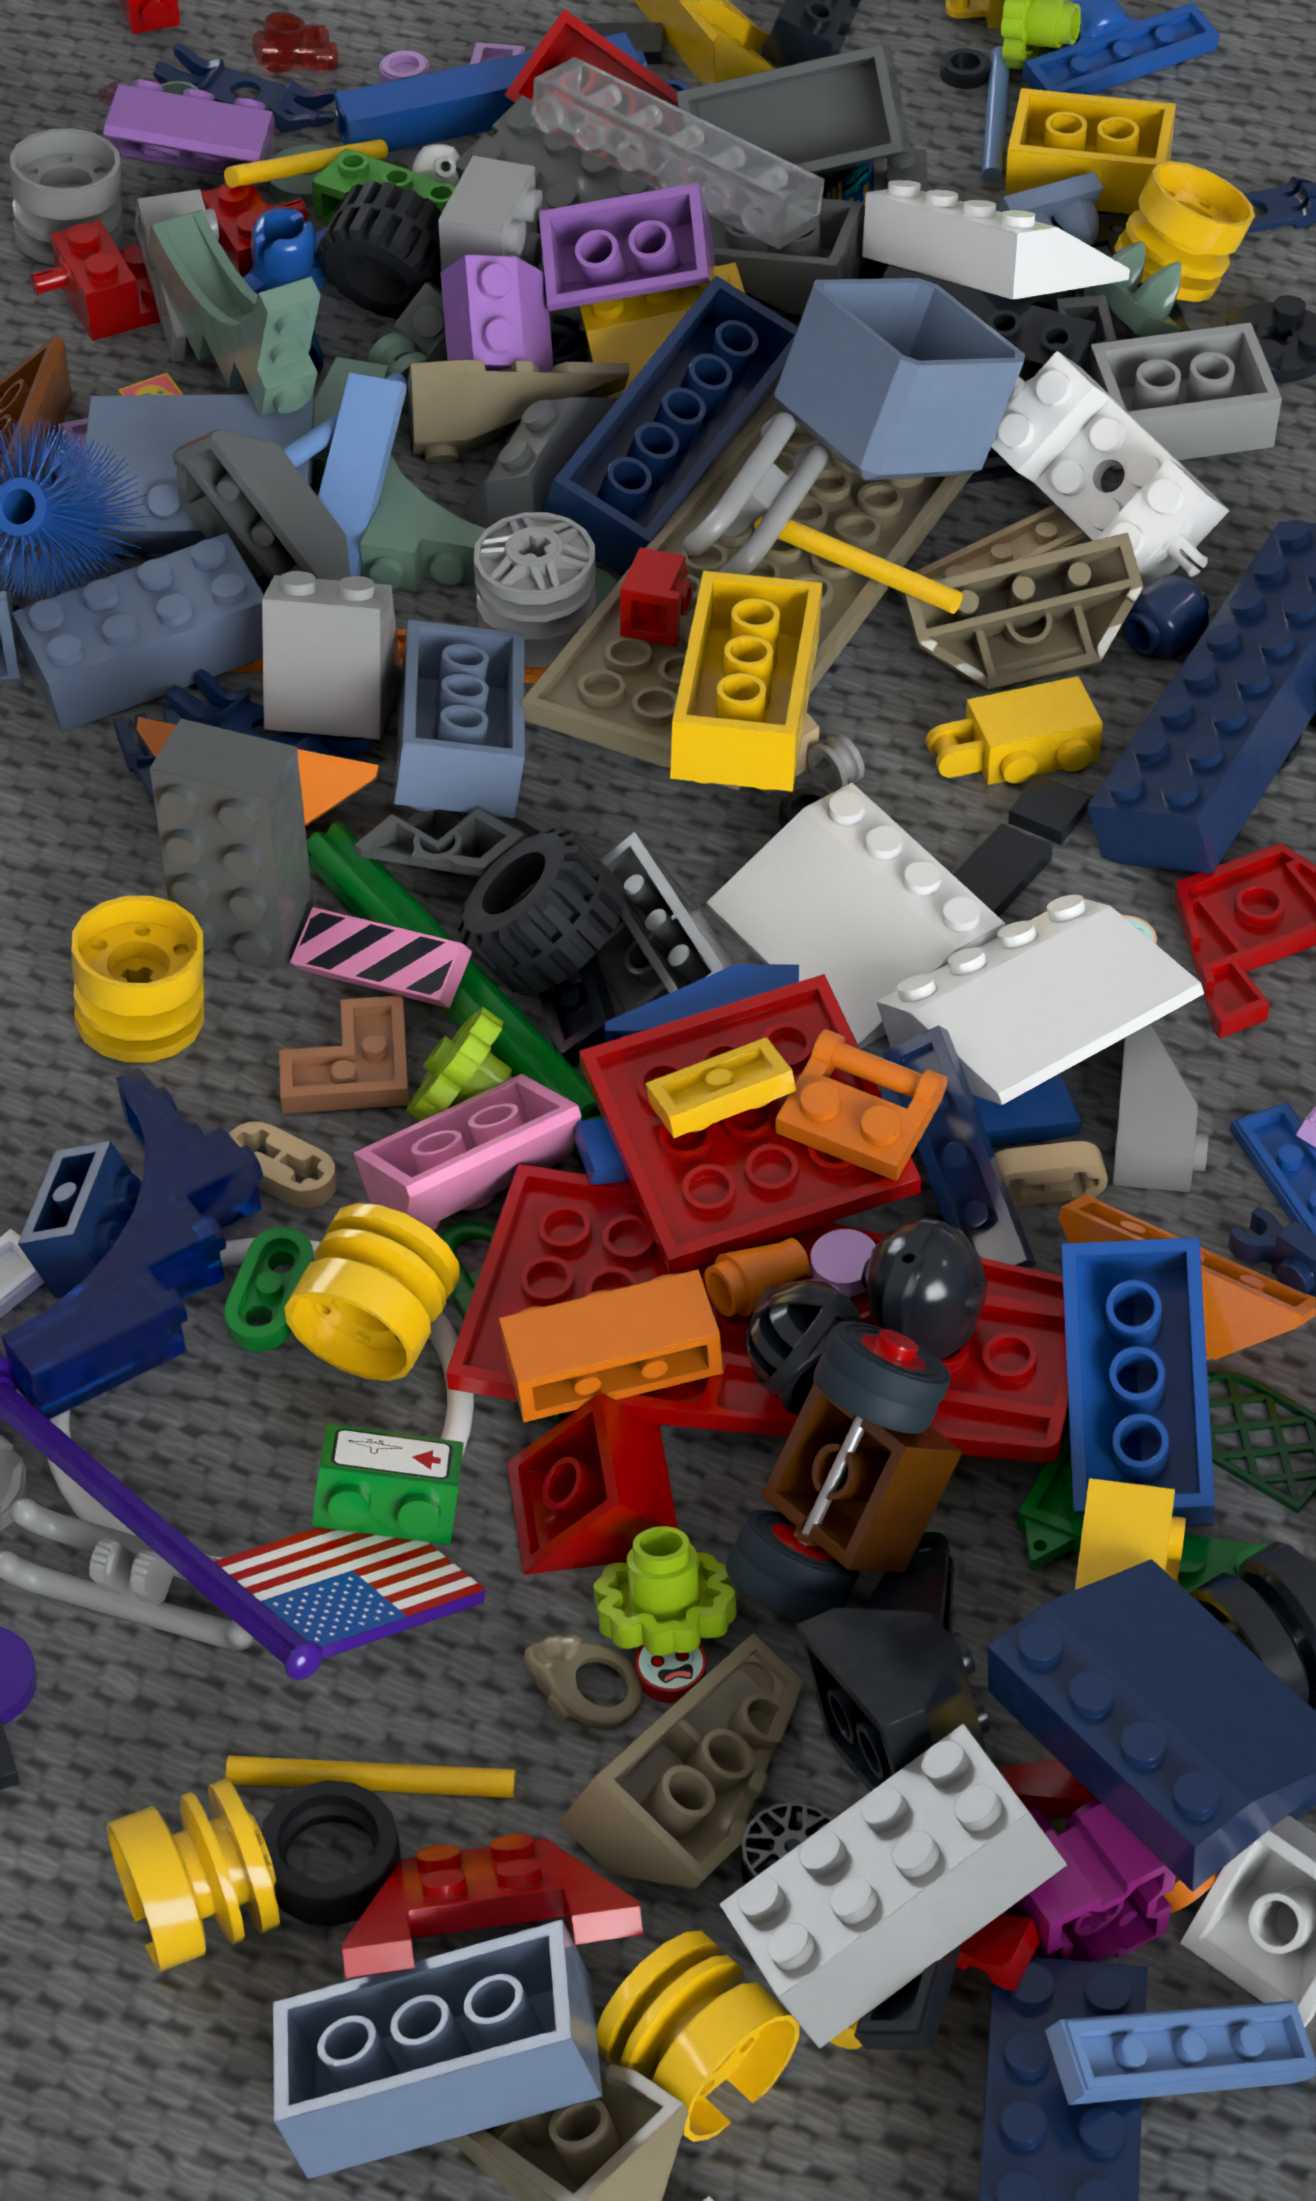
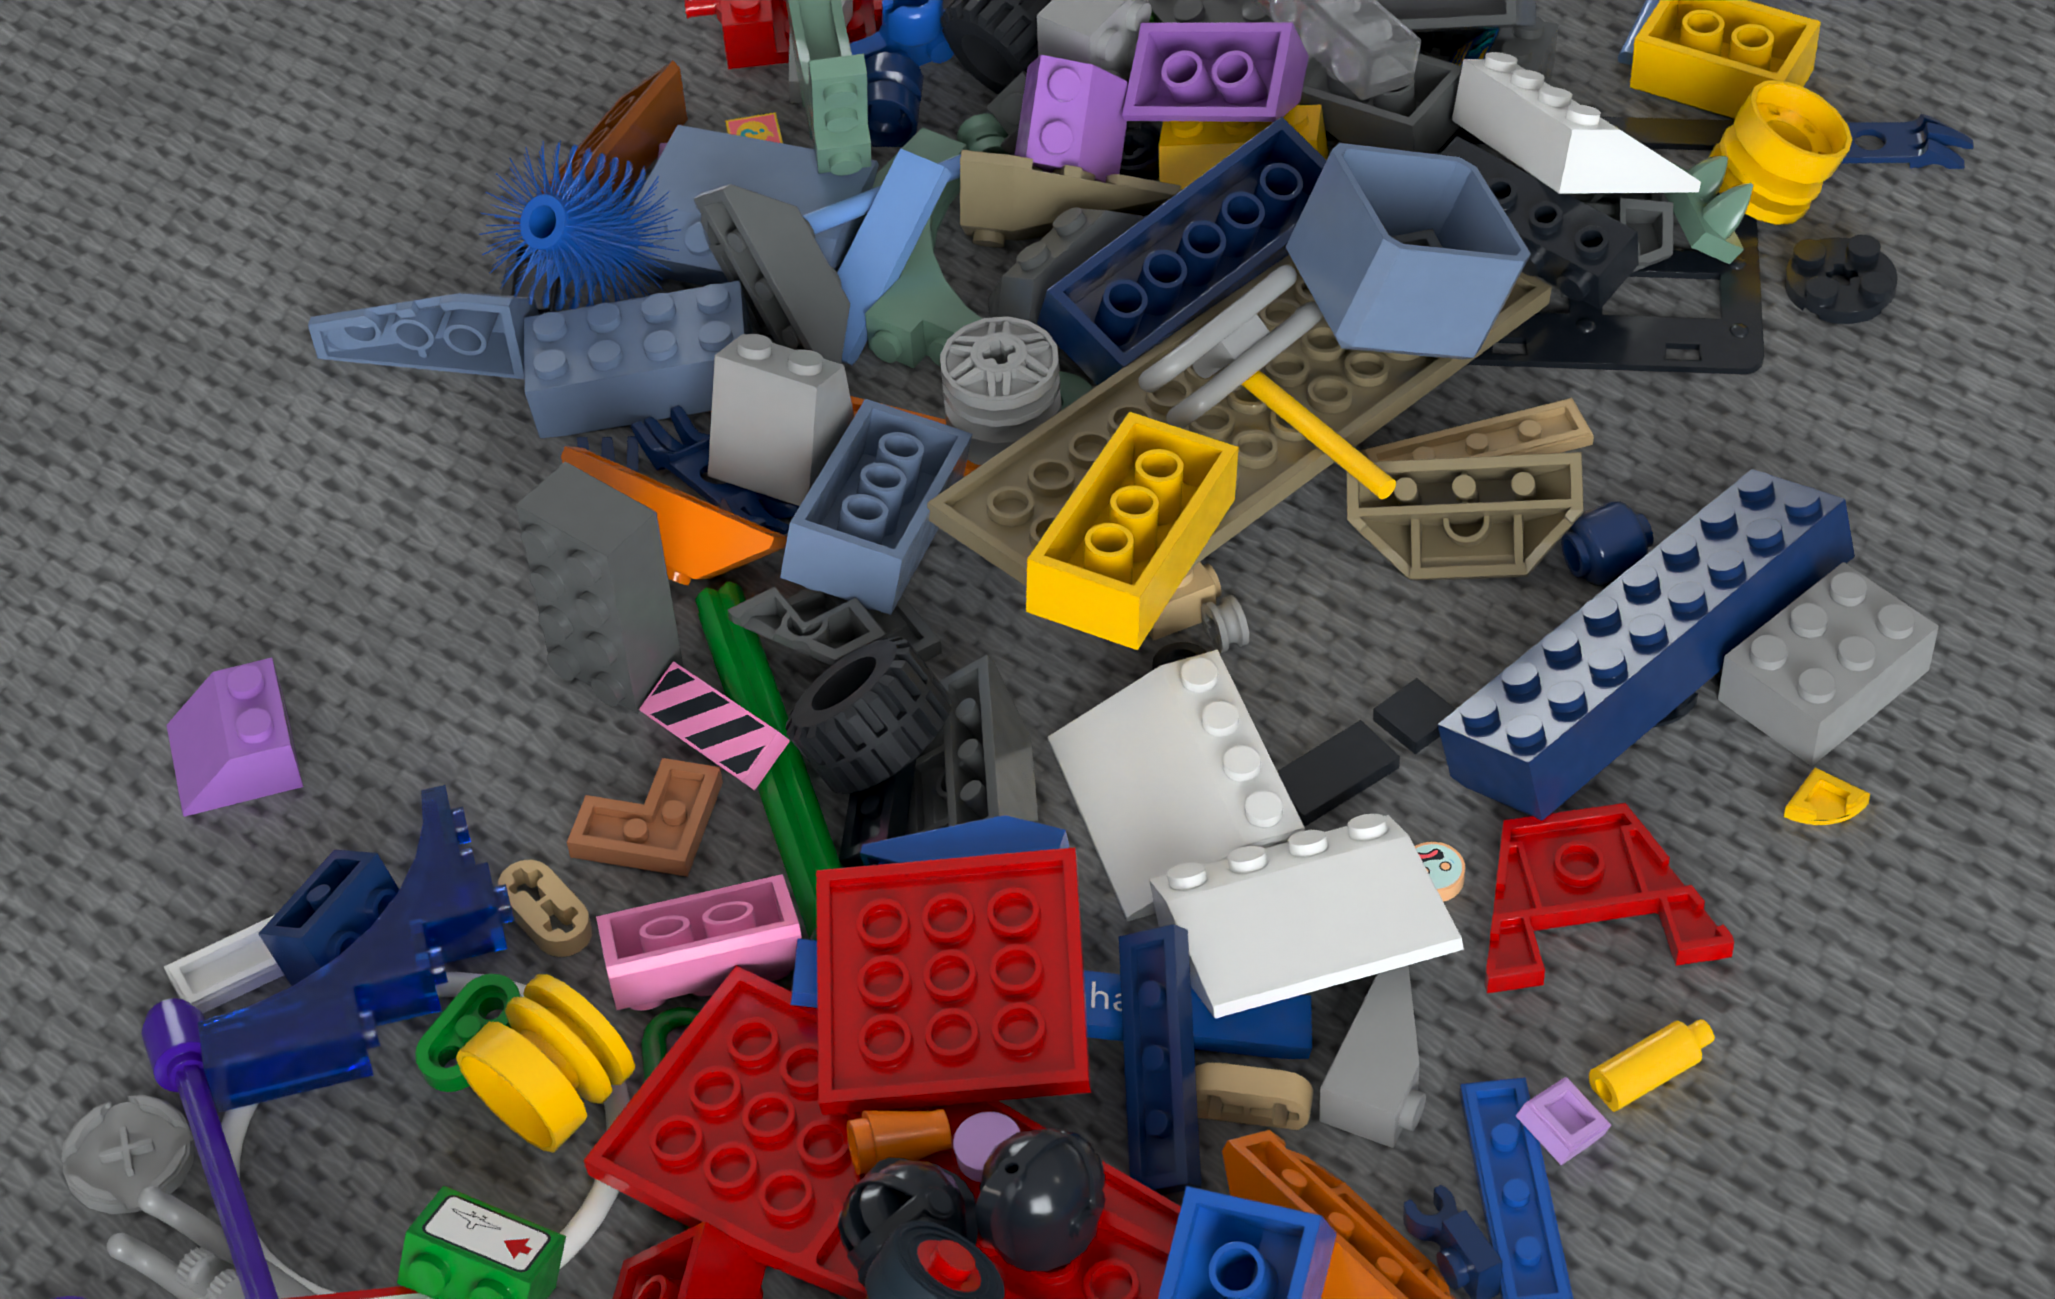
camera: 20 degrees right, 0 degrees up
(138, 978) = (483, 696): yellow wheel -> none
(460, 1067) = (735, 854): lime plant -> none
(611, 1344) = (731, 1175): orange brick -> none
(655, 597) = (1087, 421): red brick -> none
(720, 1087) = (923, 942): yellow plate -> none
(852, 1121) = (1040, 1006): orange plate -> none
(1021, 734) = (1413, 633): yellow brick -> none
(1062, 204) = (1644, 105): sand blue tile -> none
(1069, 432) = (1569, 338): white brick -> none
(1193, 389) = (1709, 320): light grey brick -> none

